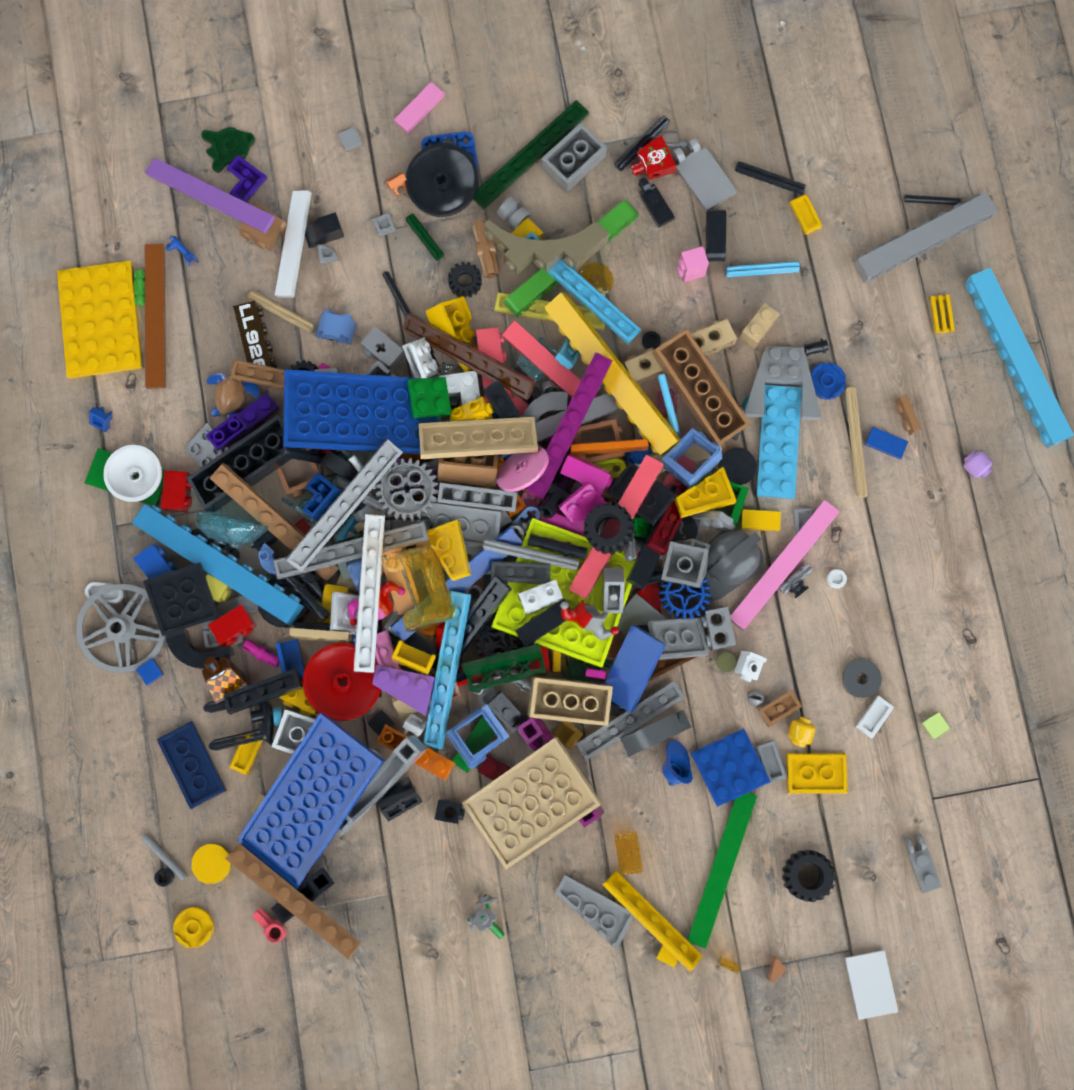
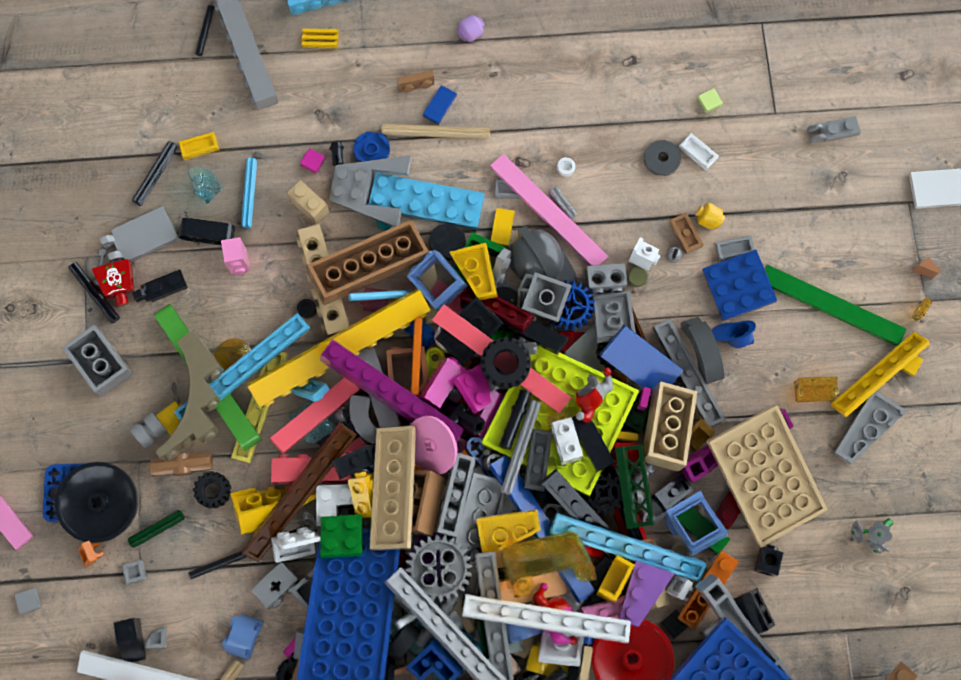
camera: 90 degrees left, 5 degrees down
(530, 154) = (83, 407): dark green tile -> none
(562, 586) = (556, 417): none -> clear yellow tile
(613, 590) = (564, 369): light grey slope -> none
(765, 225) = (204, 184): none -> clear light blue piece
(799, 589) = (574, 200): black bush -> none
(805, 325) = (312, 161): none -> dark pink tile
(816, 773) = (747, 209): yellow tile -> none
(824, 882) = (853, 217): black tyre -> none

